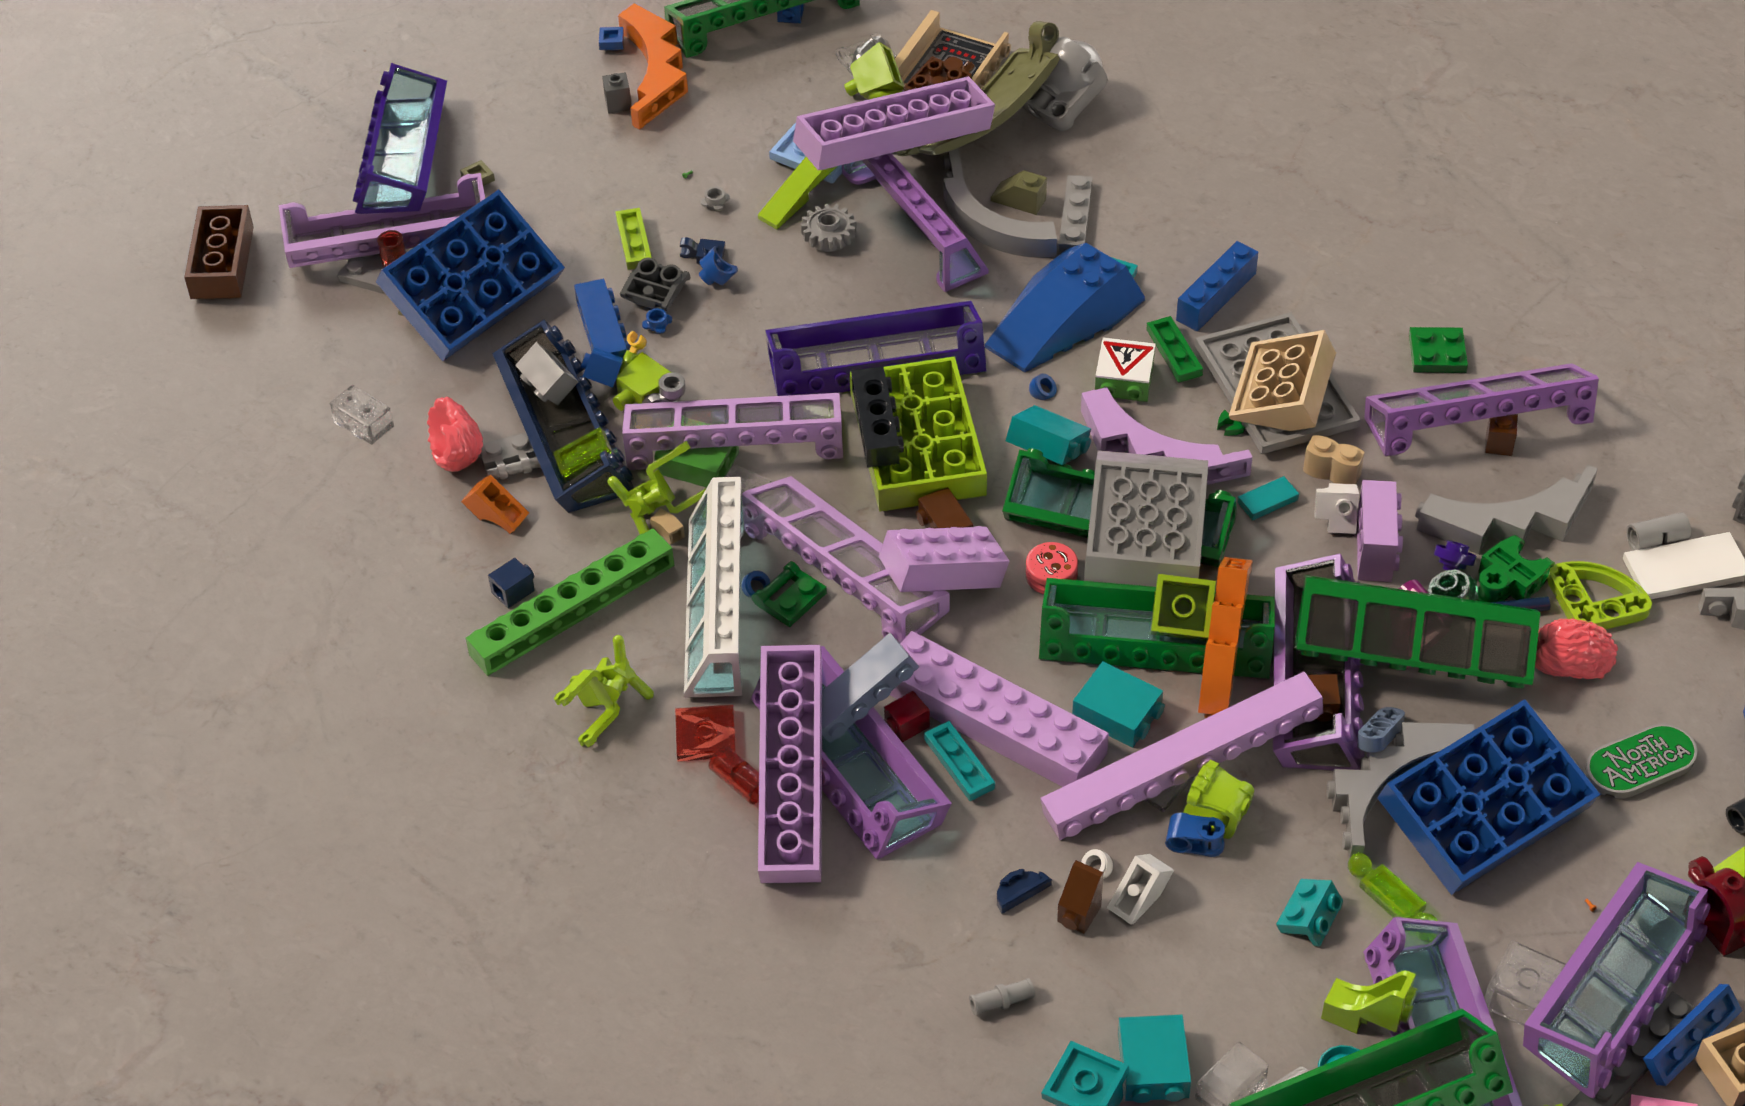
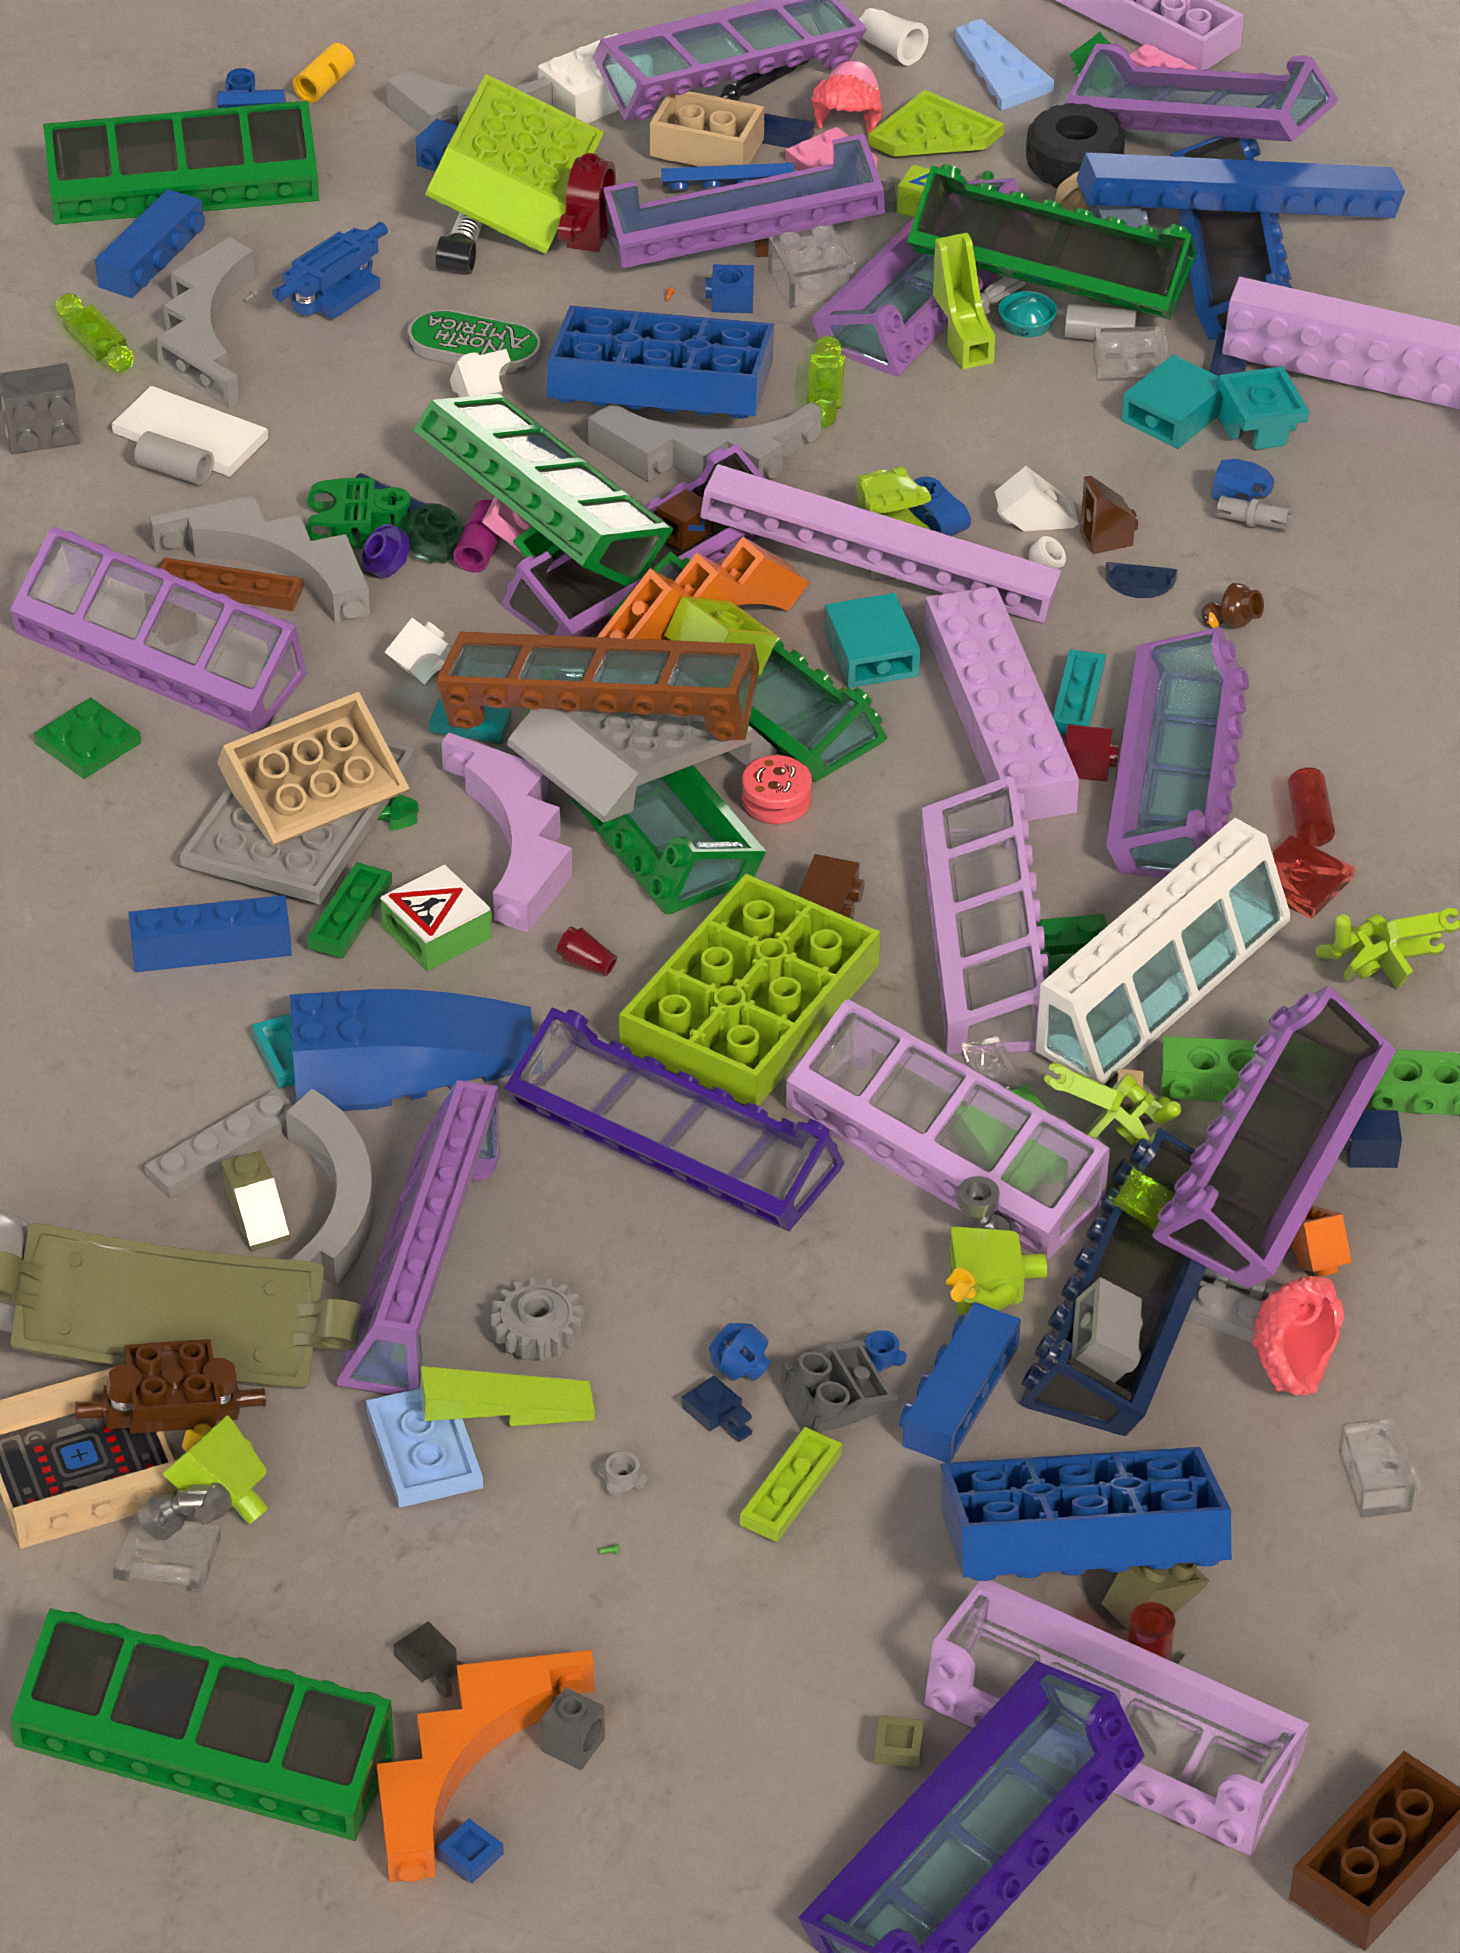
camera: 140 degrees left, 5 degrees down
(545, 506) = (1275, 1139): none -> window
(601, 366) = (1027, 1297): blue brick -> none
(712, 91) = (429, 1654): none -> clear smoke plate
(790, 764) = (1267, 735): lavender brick -> none
(864, 686) = (1127, 753): sand blue brick -> none
(876, 417) = (800, 984): black brick -> none
(893, 123) = (364, 1251): lavender brick -> none
(931, 898) = (1237, 607): none -> reddish brown animal
(943, 559) = (897, 823): lavender brick -> none
(1034, 1012) = (1242, 480): none -> blue rock
(1035, 399) = (586, 952): none -> dark red cone
(1036, 390) = (538, 978): blue piece -> none
(1049, 433) = (619, 890): teal brick -> none
(1185, 494) = (600, 676): none -> dark orange window
(1311, 910) = (910, 412): teal bracket -> none
(1333, 461) = (362, 674): tan brick -> none
(1378, 531) = (442, 587): lavender brick -> none
(1380, 729) = (652, 487): sand blue beam -> none
(1517, 482) = (240, 584): none -> dark orange tile
(1545, 936) = (731, 288): none -> blue brick
(1575, 649) = (390, 425): coral hair -> none
(1582, 712) = (479, 373): none -> white brick
(1594, 611) = (294, 435): lime beam -> none

